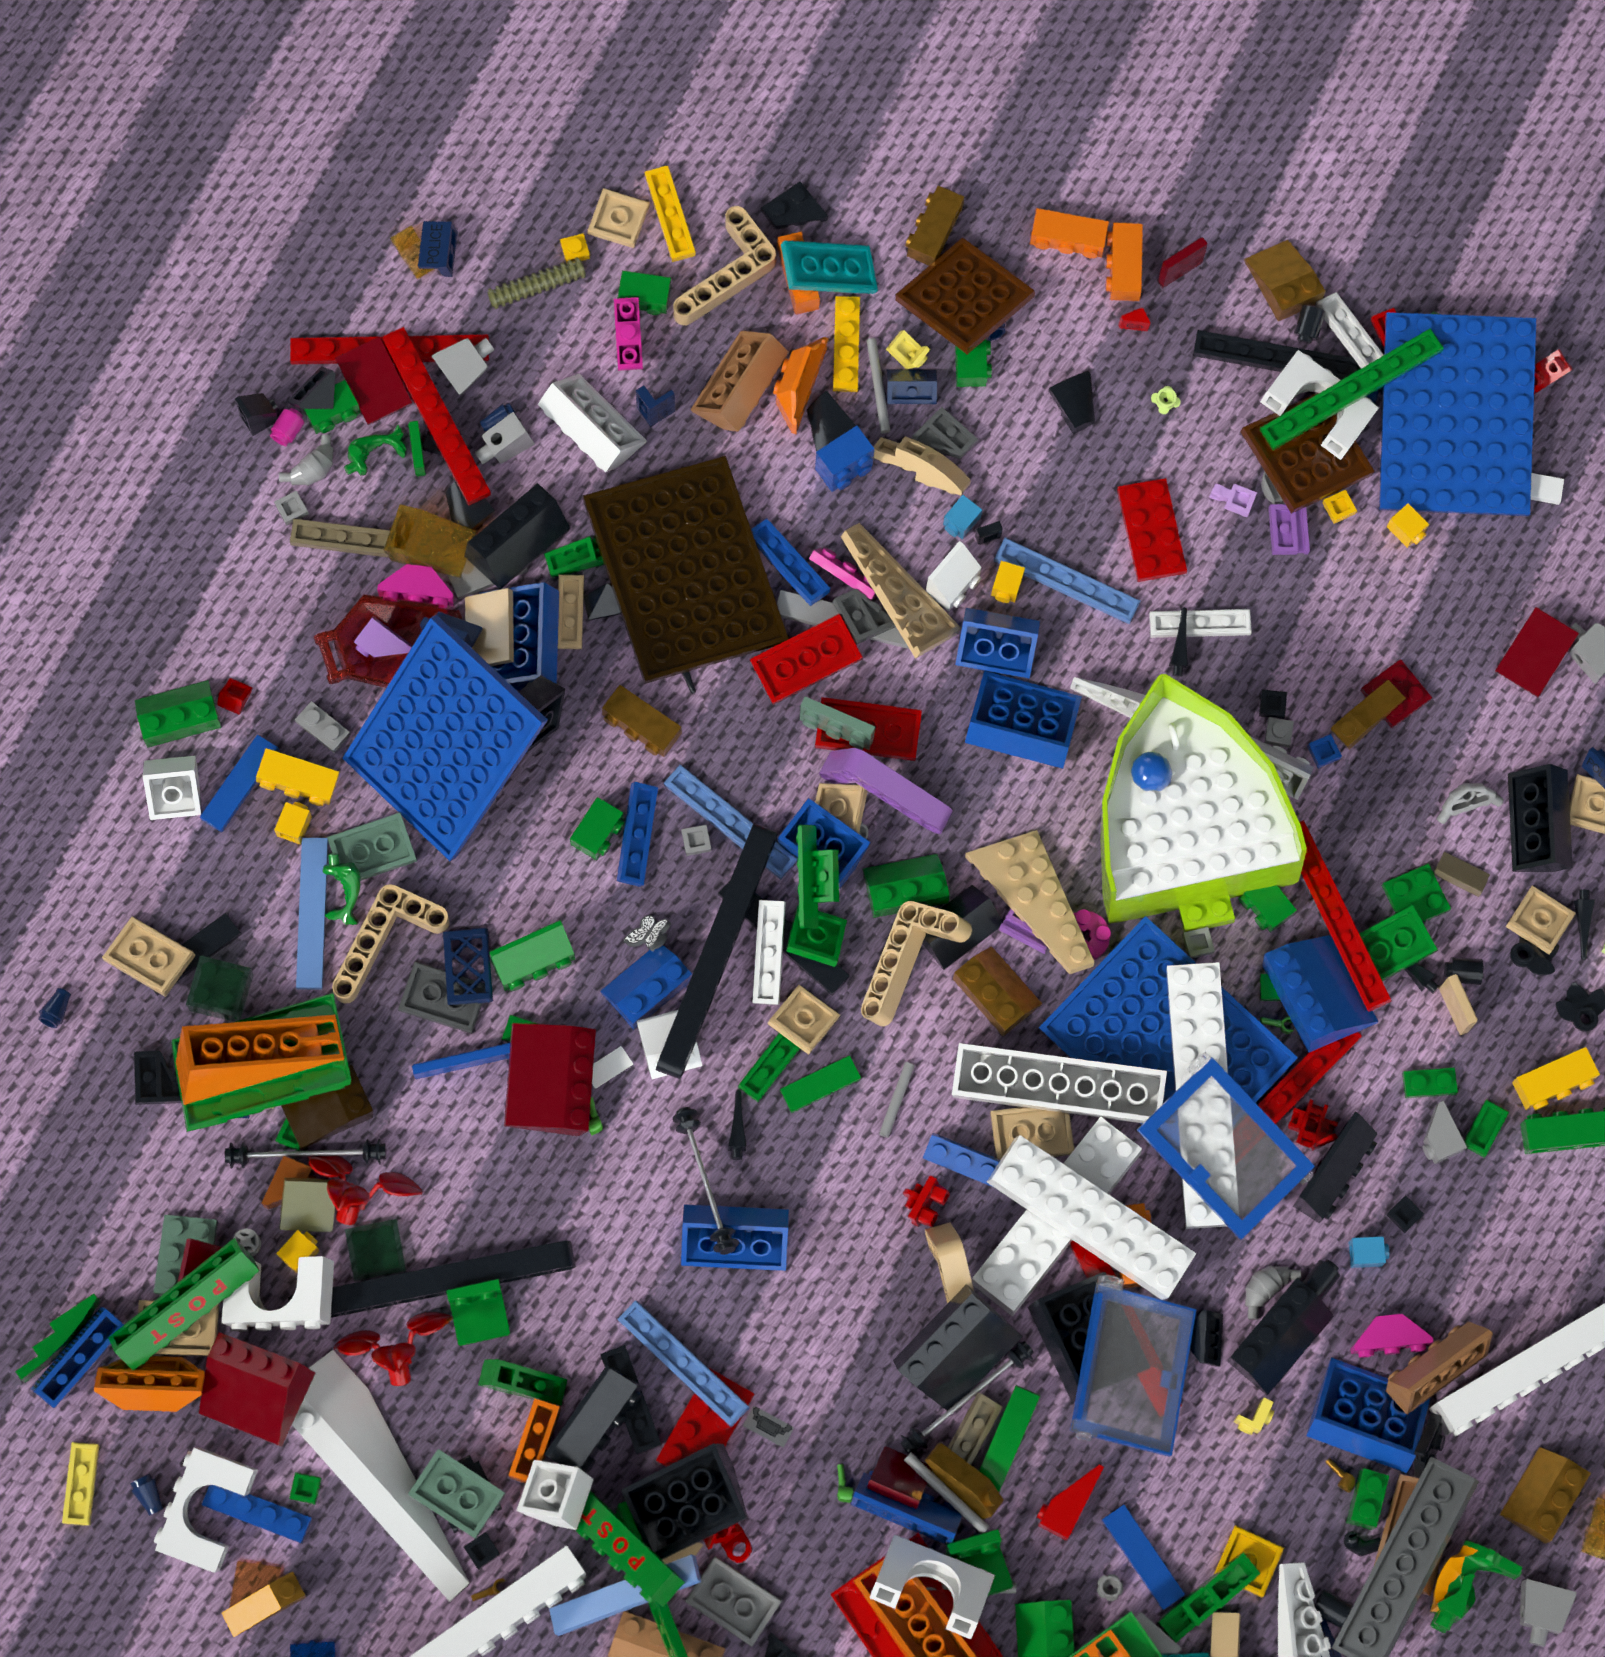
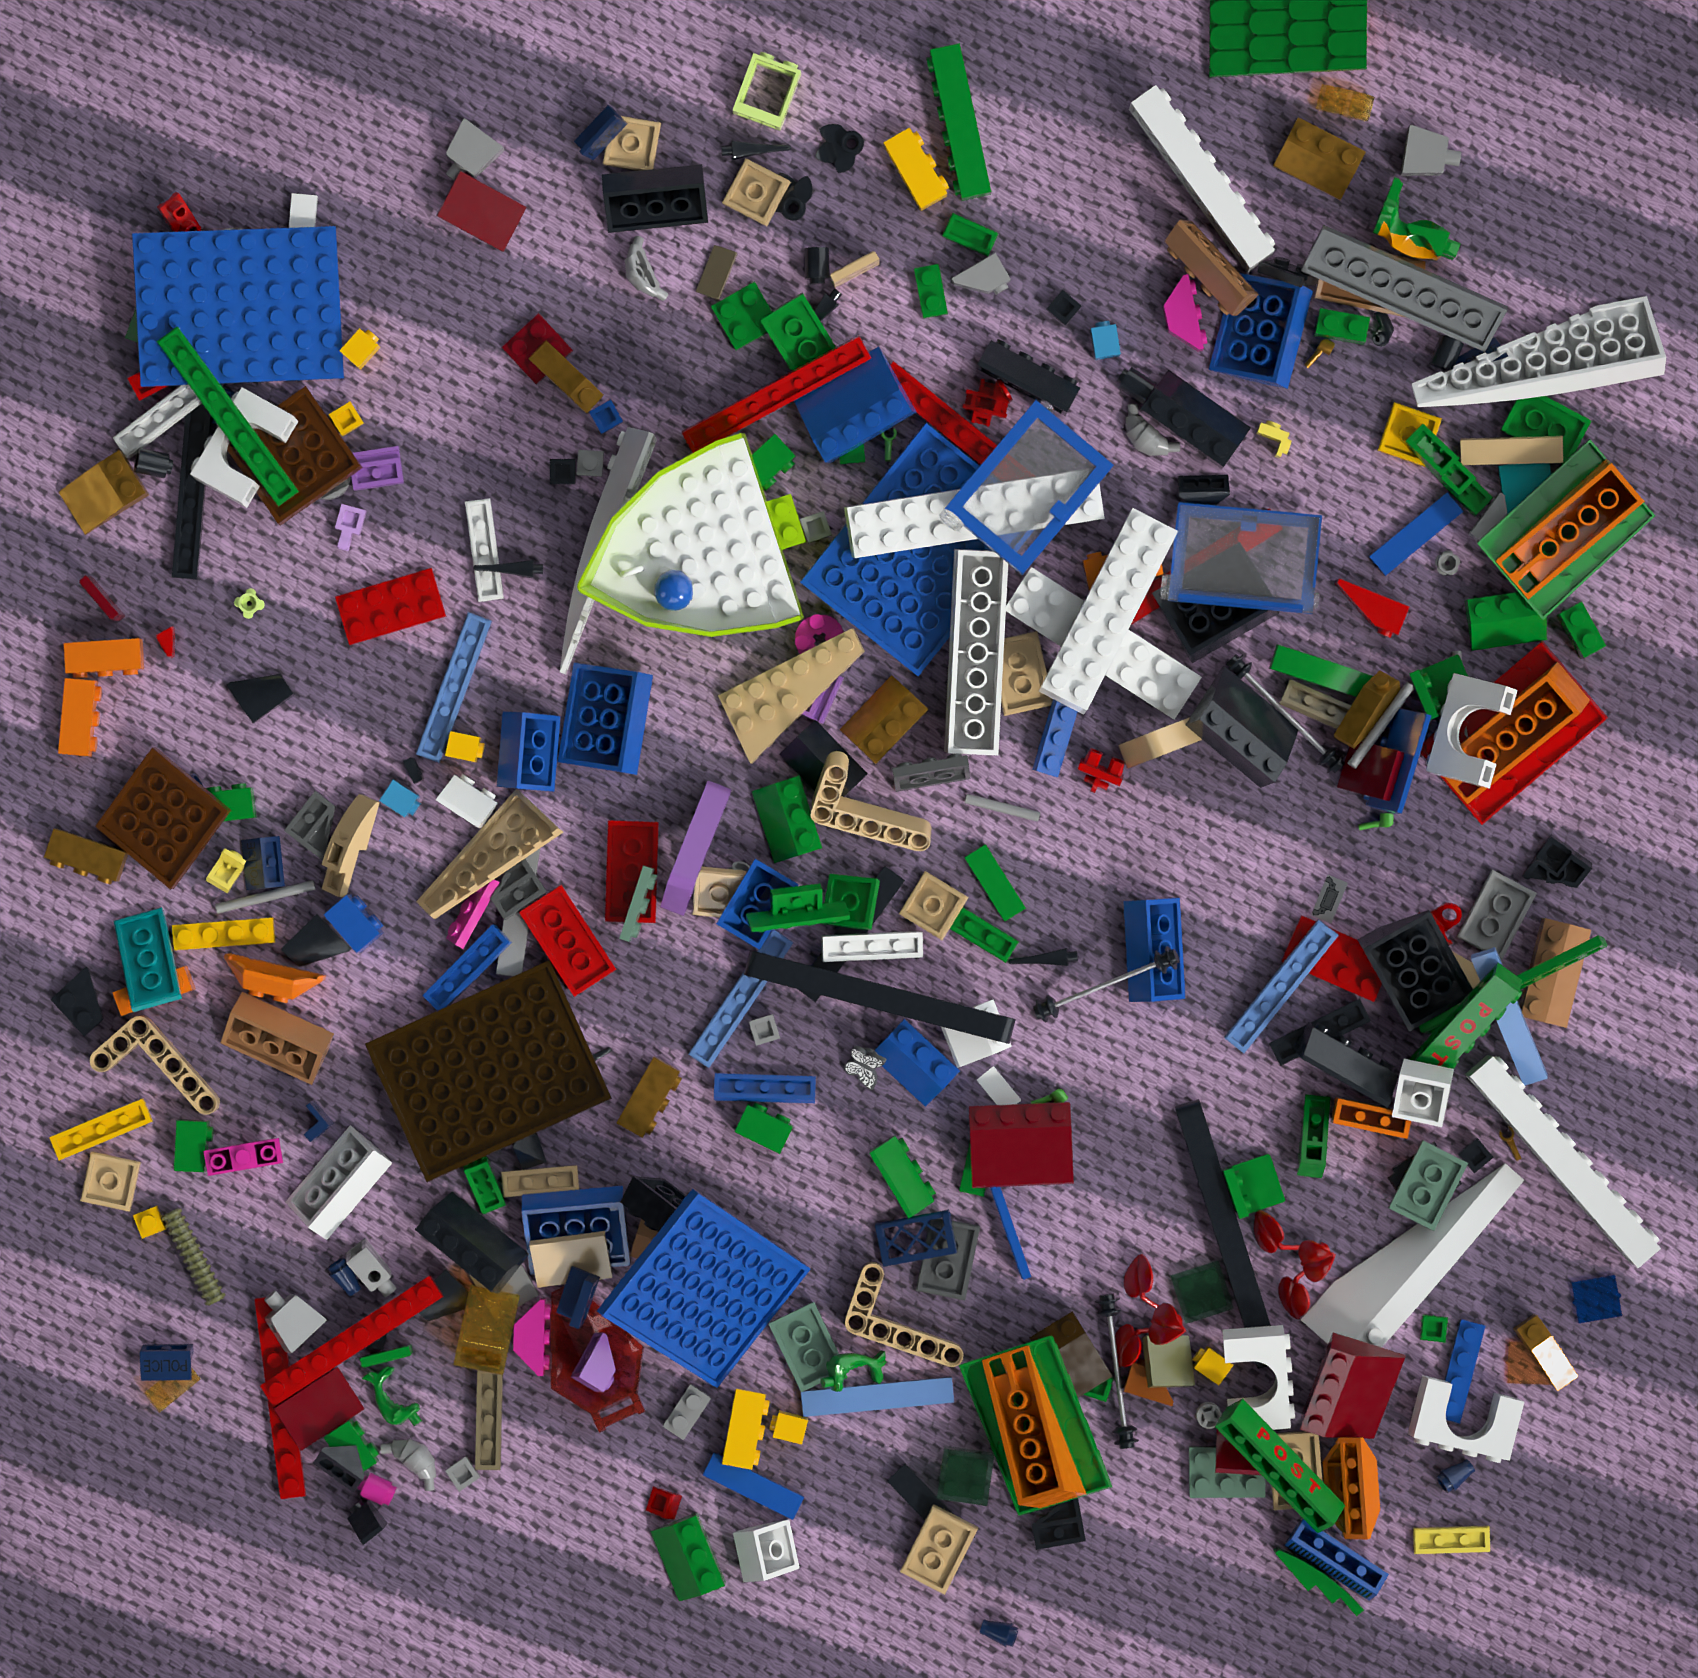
camera: 90 degrees left, 15 degrees up
(940, 1027) = (931, 772): none -> dark grey plate

